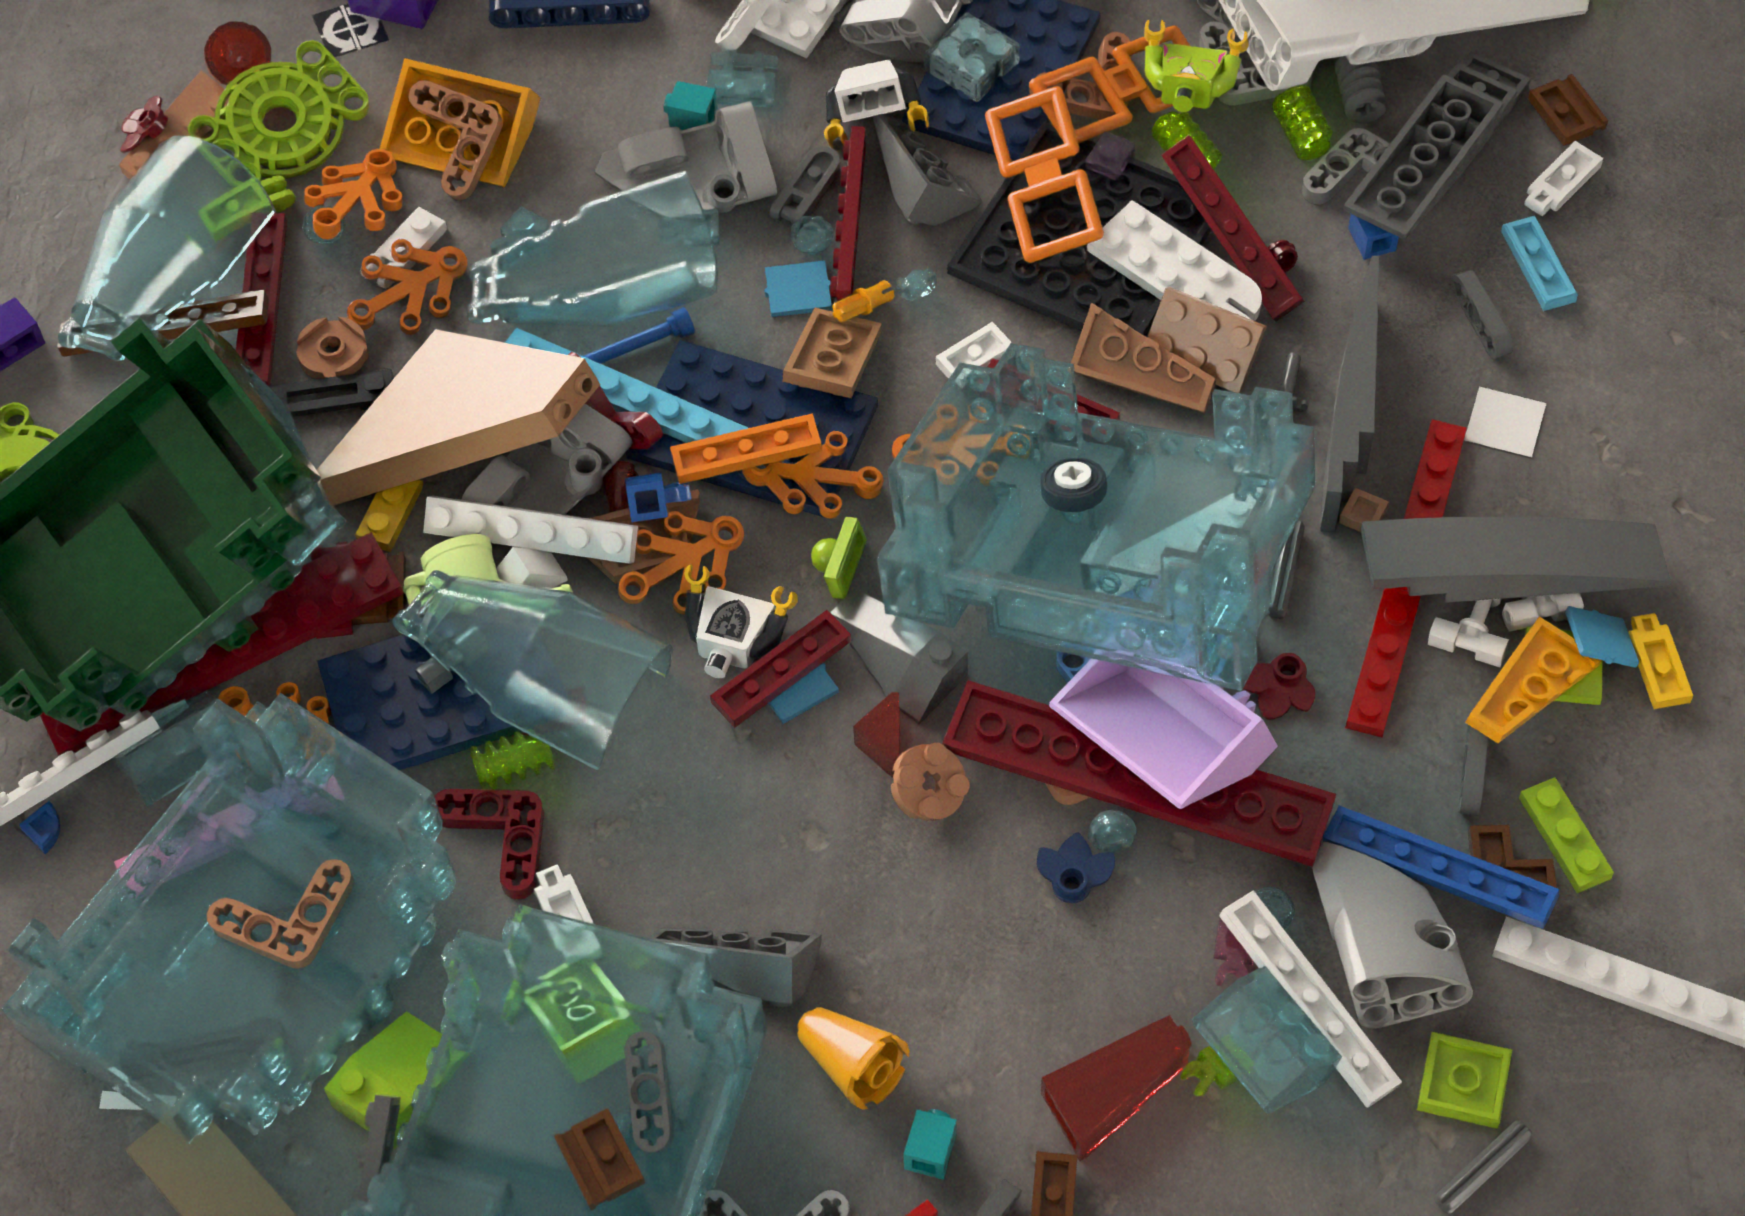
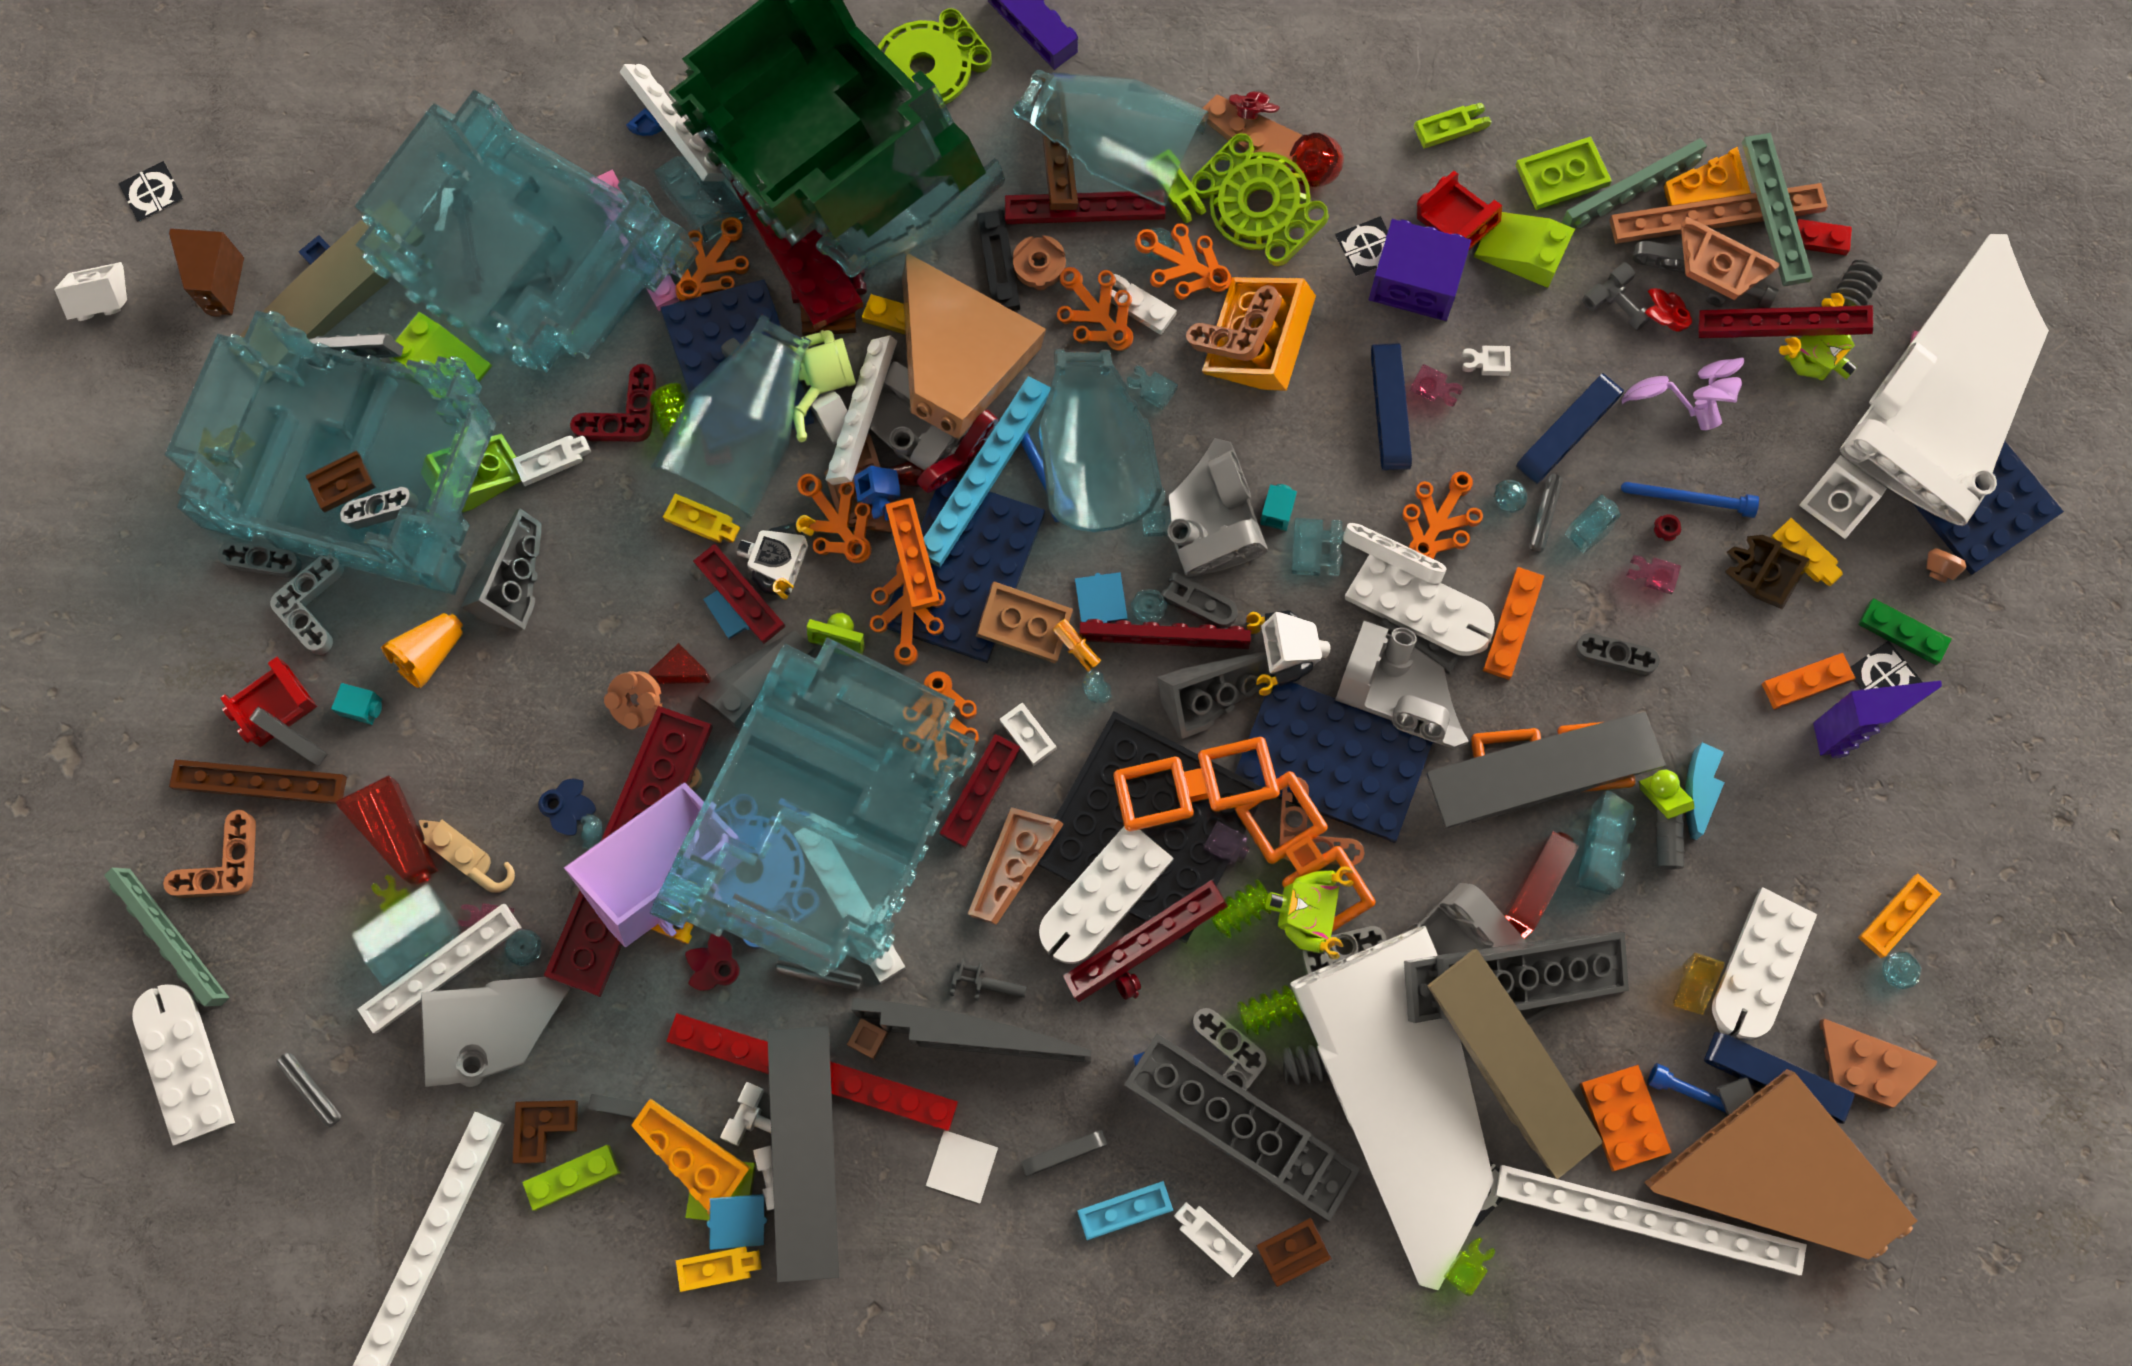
camera: 90 degrees right, 15 degrees up
(294, 930) = (527, 278): nougat beam -> none
(670, 723) = (700, 520): none -> yellow hinge
(971, 56) = (1328, 727): clear light blue piece -> none
(1073, 484) = (855, 804): black wheel -> none
(1146, 990) = (463, 854): none -> tan plate
(1208, 337) = (1030, 915): medium nougat plate -> none
(1444, 867) = (536, 1073): blue plate -> none
(1464, 1080) = (378, 1082): lime tile -> none

